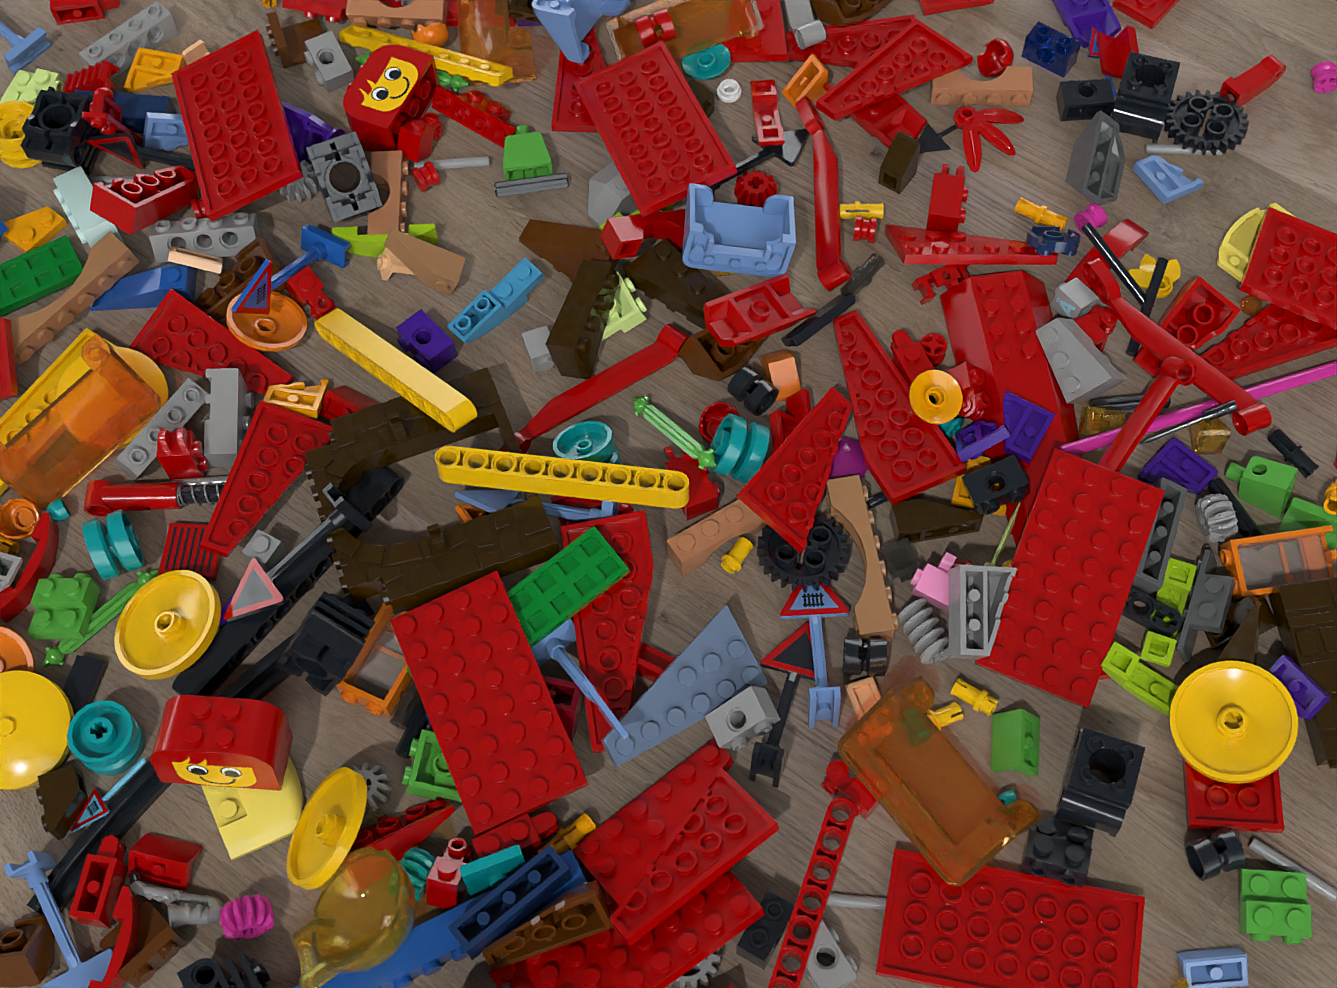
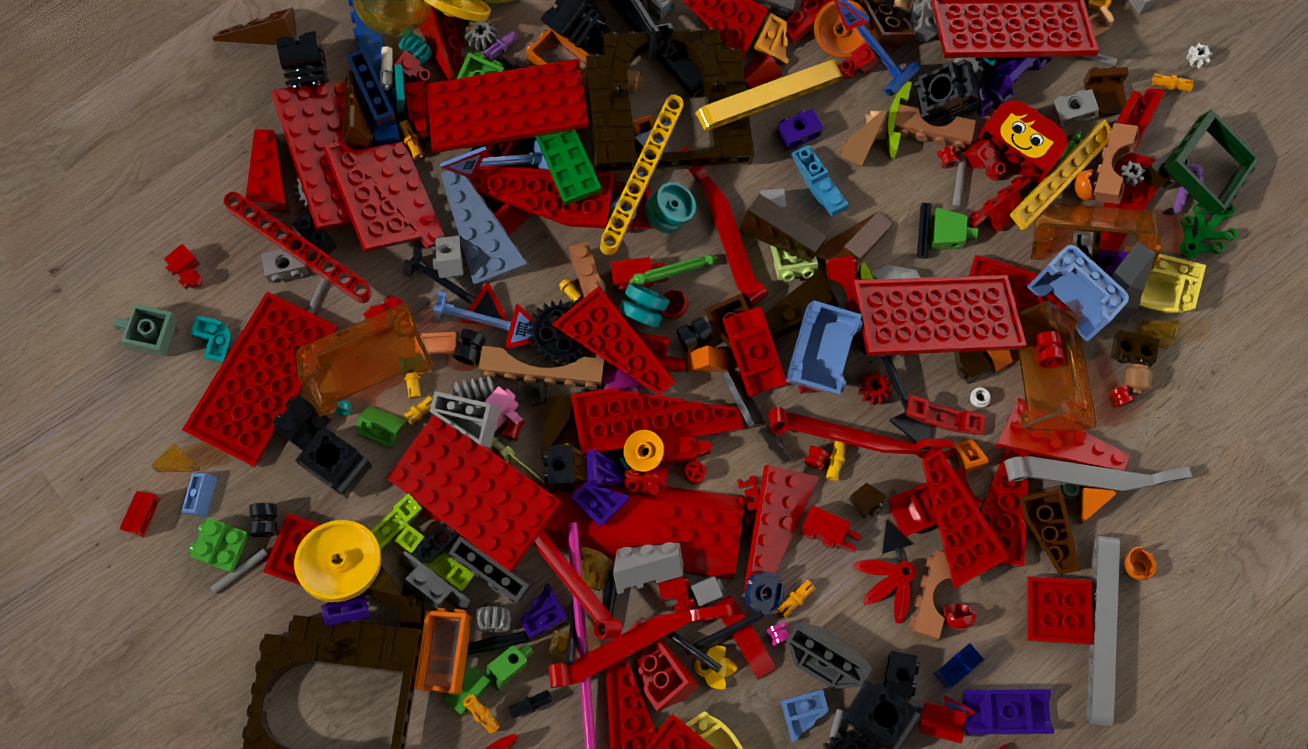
camera: 100 degrees right, 10 degrees up
(378, 756) = (500, 46): none -> medium lavender axle
(461, 899) = (386, 72): none -> white piece
(707, 62) = (1007, 378): teal dish -> none

